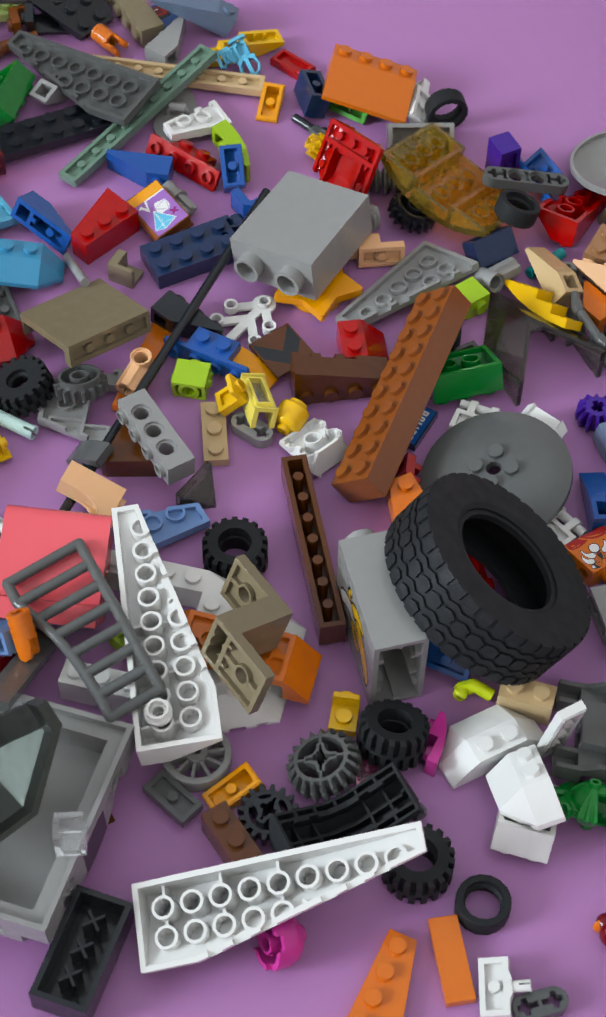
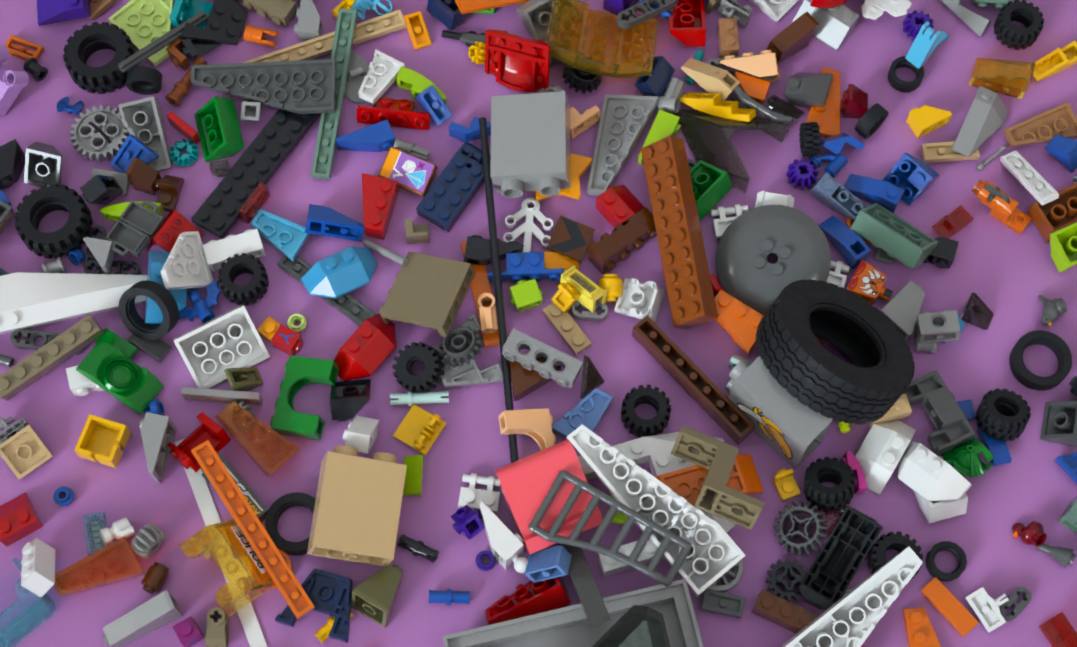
camera: 30 degrees left, 15 degrees up
(23, 633) = (569, 555): orange hinge -> none
(91, 453) = (501, 393): dark grey slope -> none
(158, 705) = (696, 555): white plate -> none
(233, 787) = (753, 575): light orange slope -> none
(517, 208) = (660, 31): black tyre -> none
(560, 728) = (932, 426): white tile -> none

